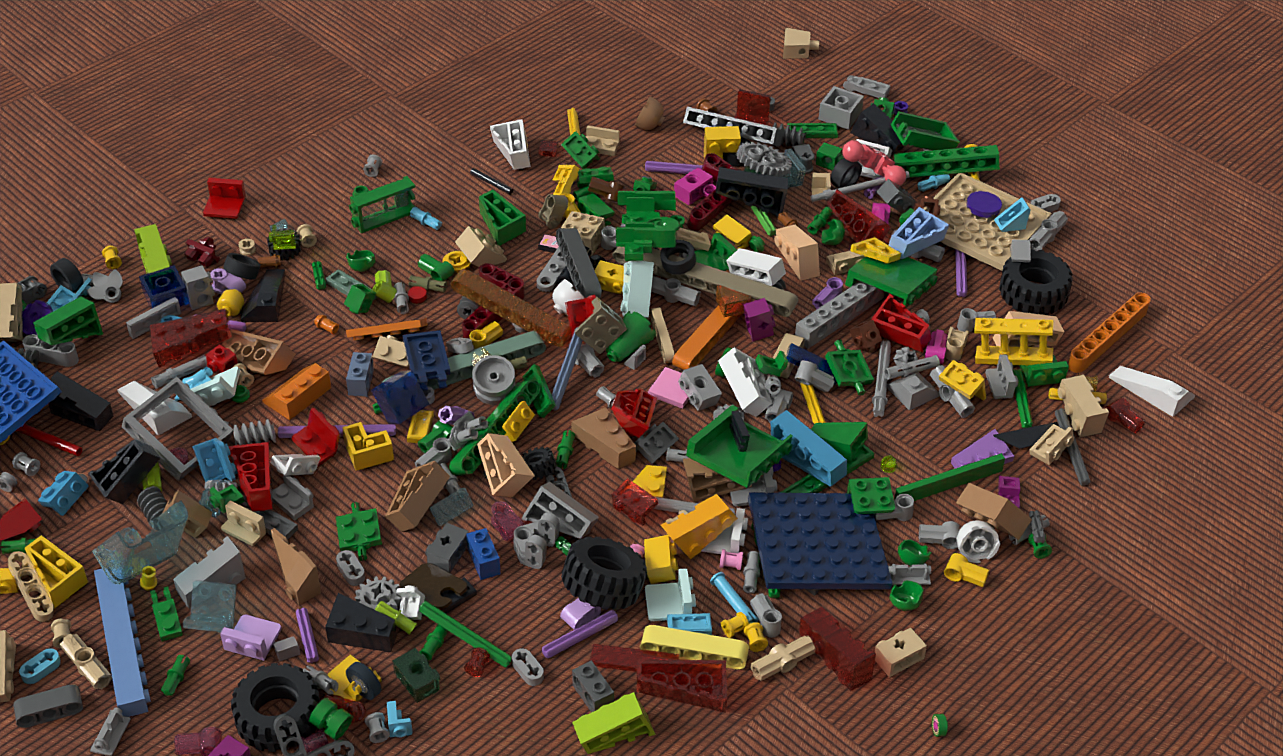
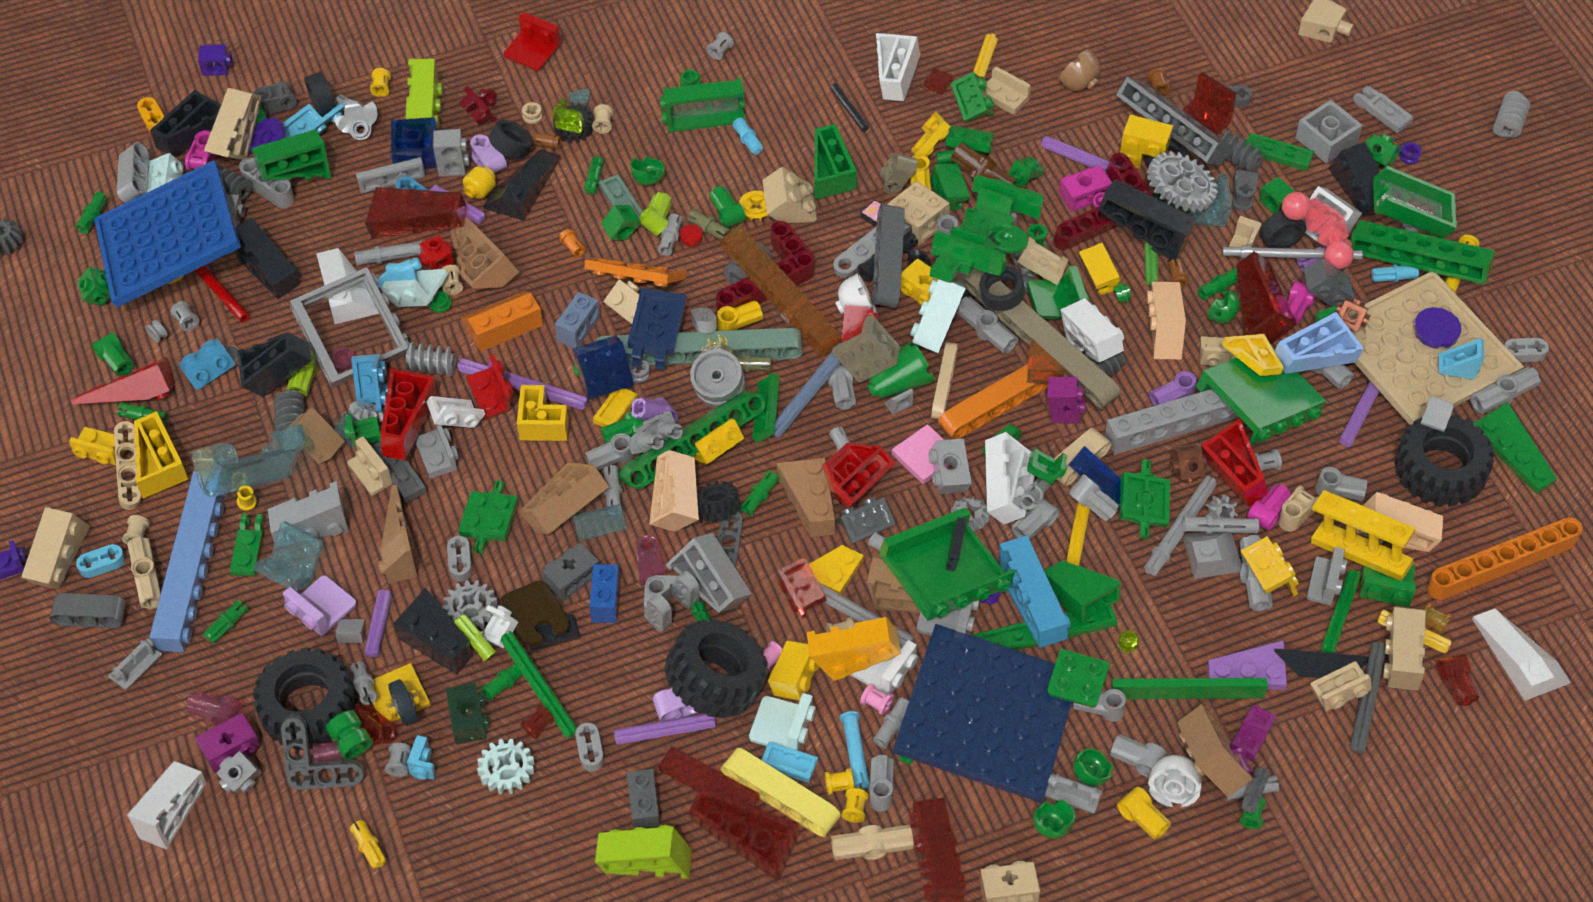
camera: 25 degrees right, 10 degrees up
(469, 702) = (505, 766): none -> light aqua gear
(954, 68) = (1511, 115): none -> light grey piece
(1080, 266) = (1516, 448): none -> green wing

